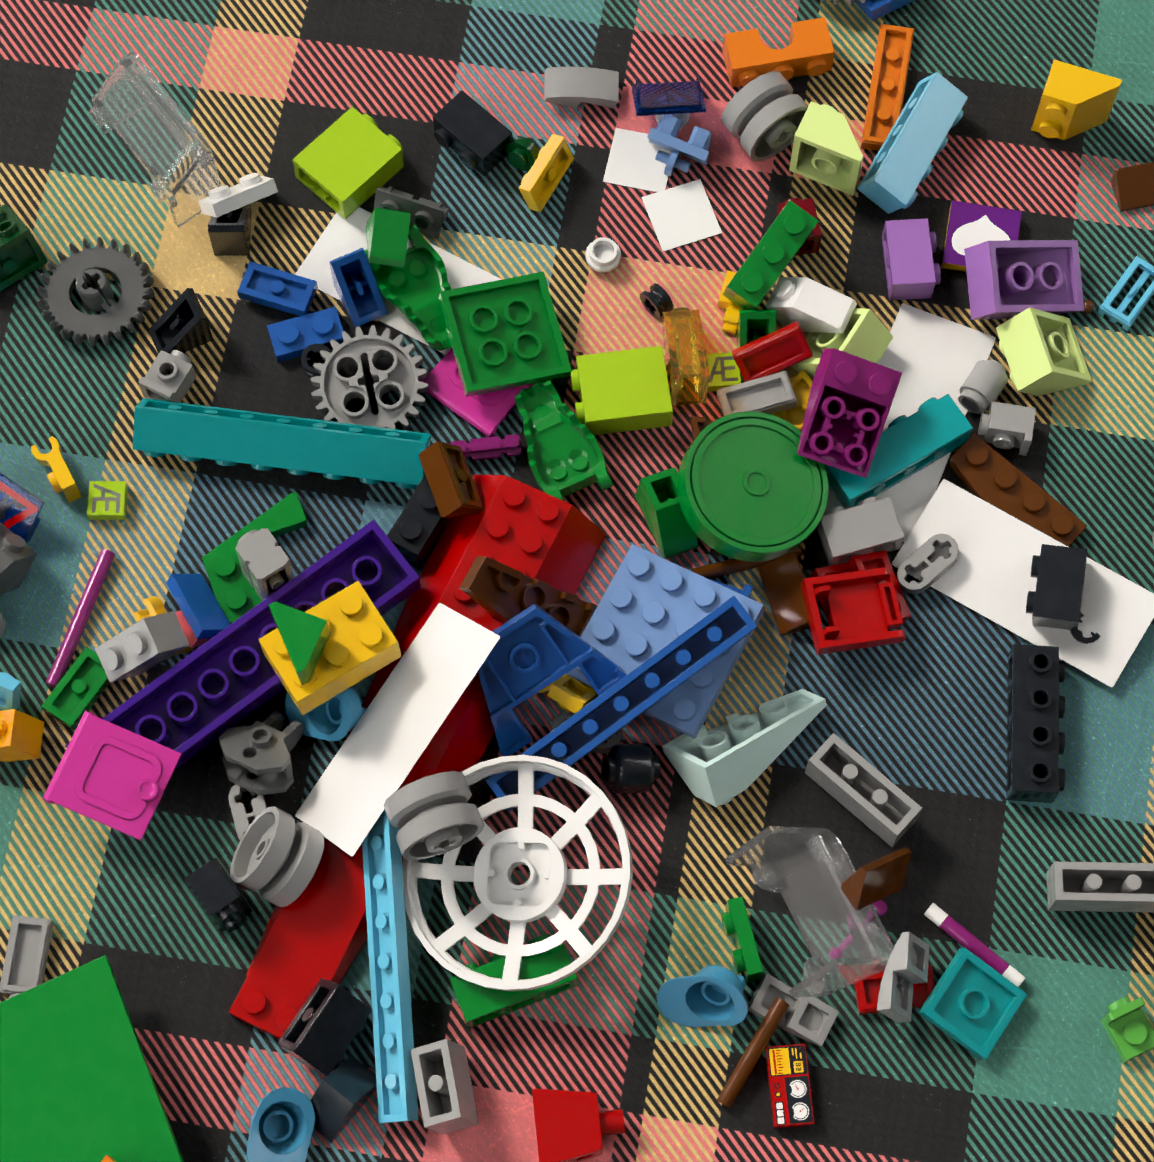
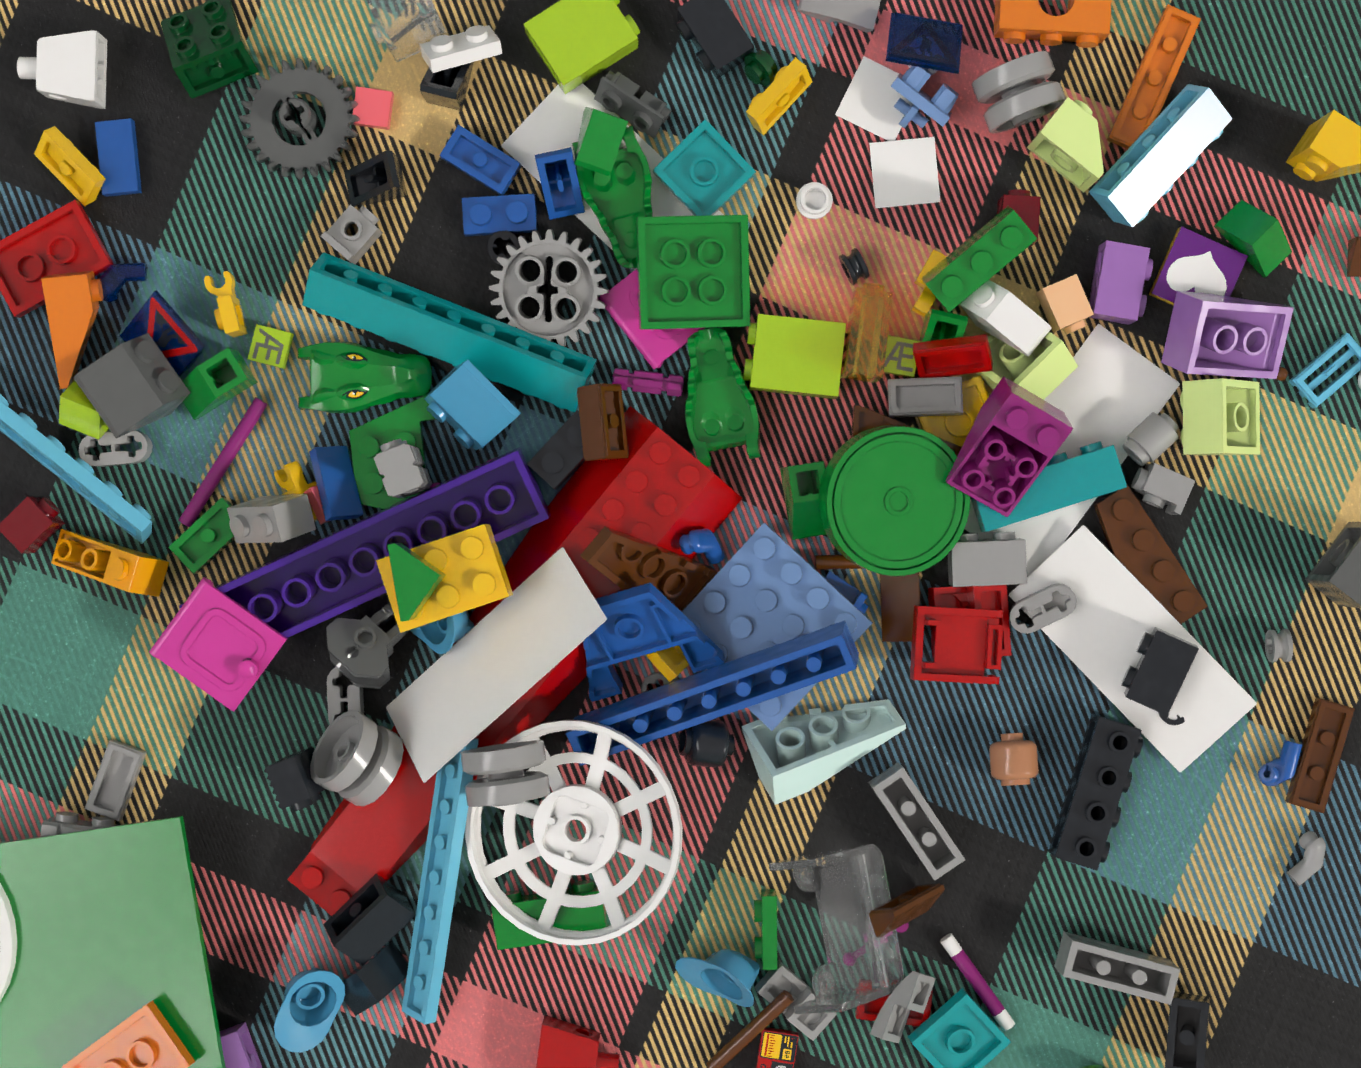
camera: 20 degrees right, 20 degrees up
(61, 539) = (217, 382): none -> green slope
(165, 268) = (373, 107): none -> coral tile
(199, 508) = (355, 377): none -> green animal
(319, 496) = (470, 406): none -> dark azure slope
(444, 1086) = (464, 1001): light grey brick -> none
(492, 249) = (704, 171): none -> teal plate
(580, 576) = (702, 542): none -> blue arm
(866, 286) = (1065, 305): none -> light nougat brick
(943, 711) = (1013, 760): none -> nougat head
(1024, 191) = (1256, 236): none -> green slope

